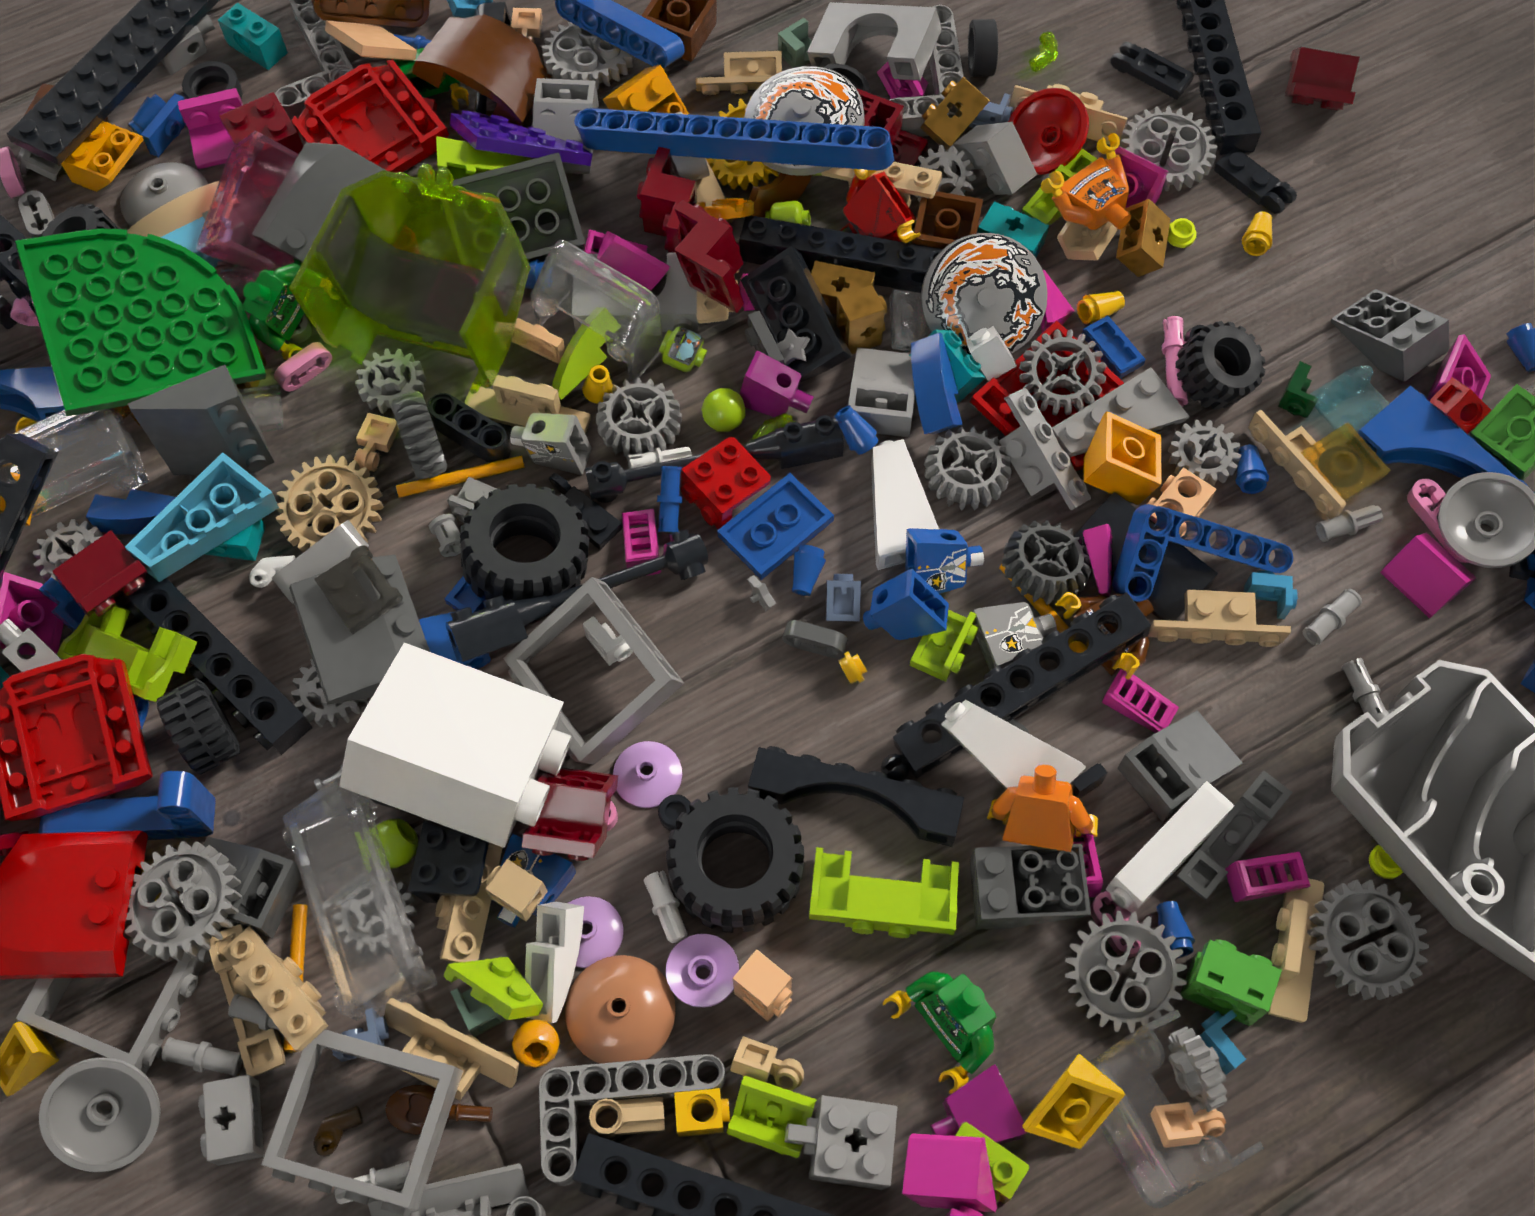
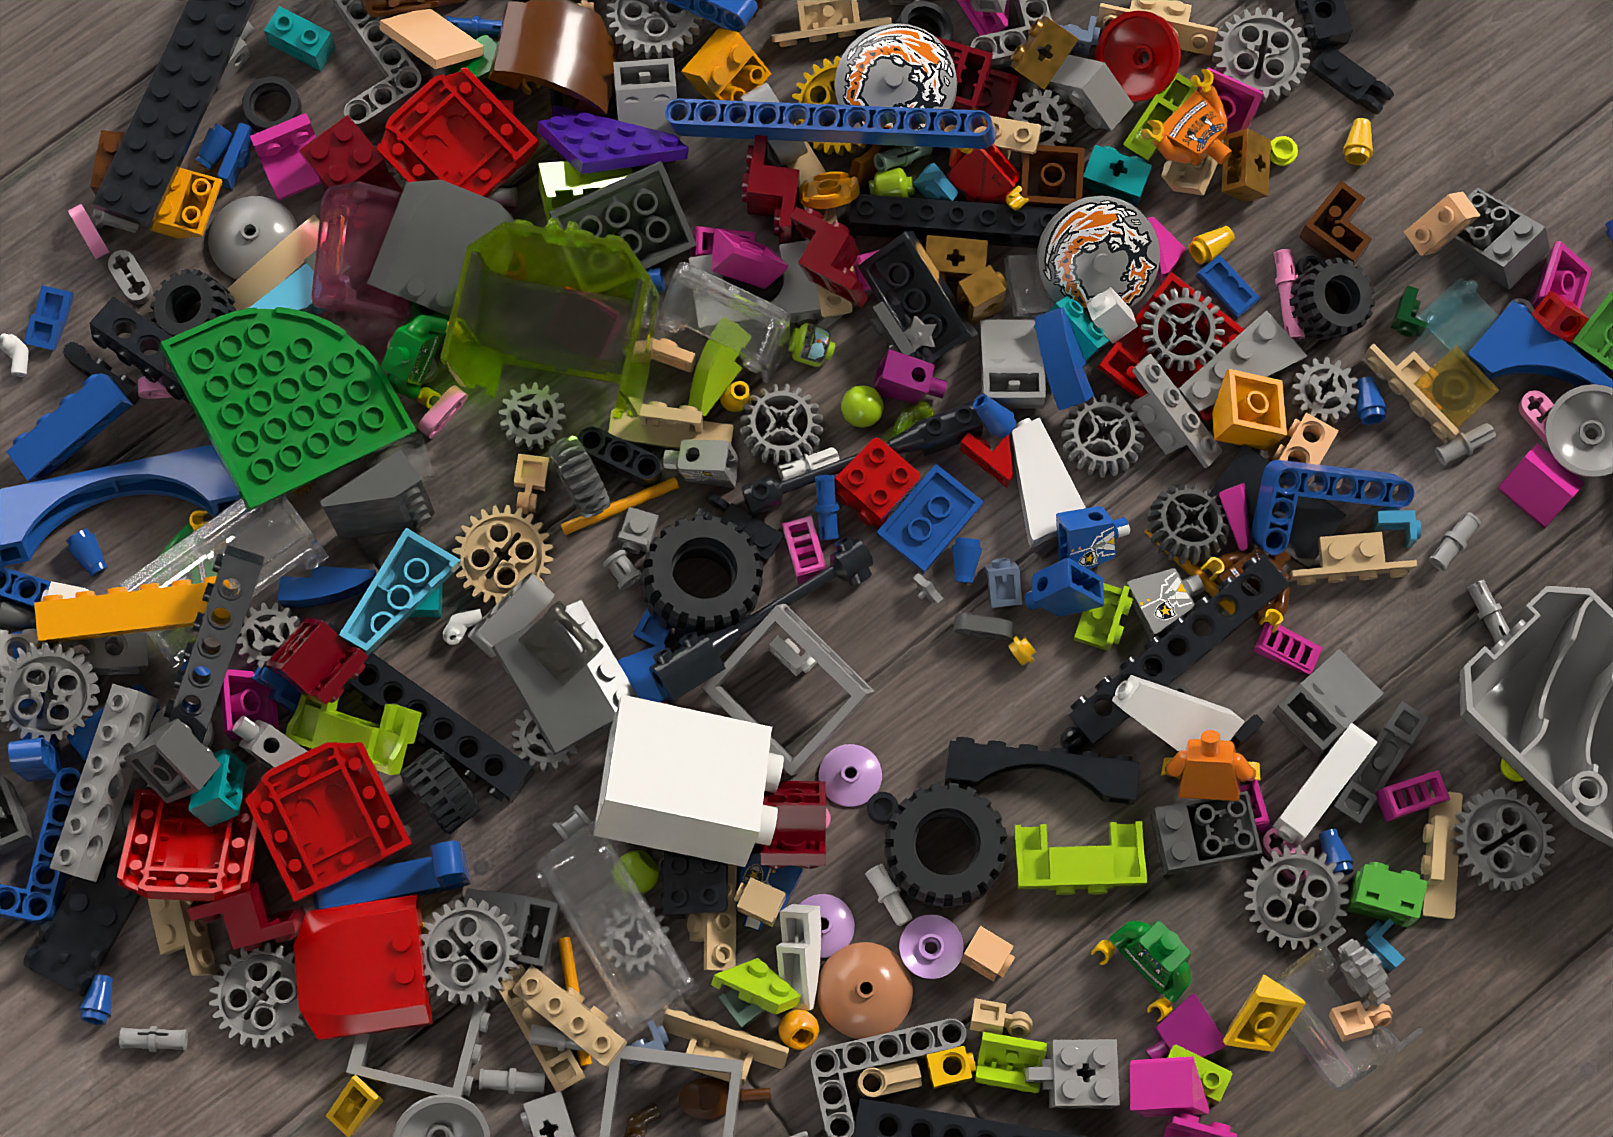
camera: 10 degrees left, 10 degrees up
(803, 191) = (889, 159): none -> sand green pin
(831, 218) = (935, 184): none -> dark azure bracket
(848, 478) = (995, 462): none -> red slope
(1229, 297) = (1330, 226): none -> reddish brown brick
(1339, 308) = (1442, 223): none -> light nougat brick

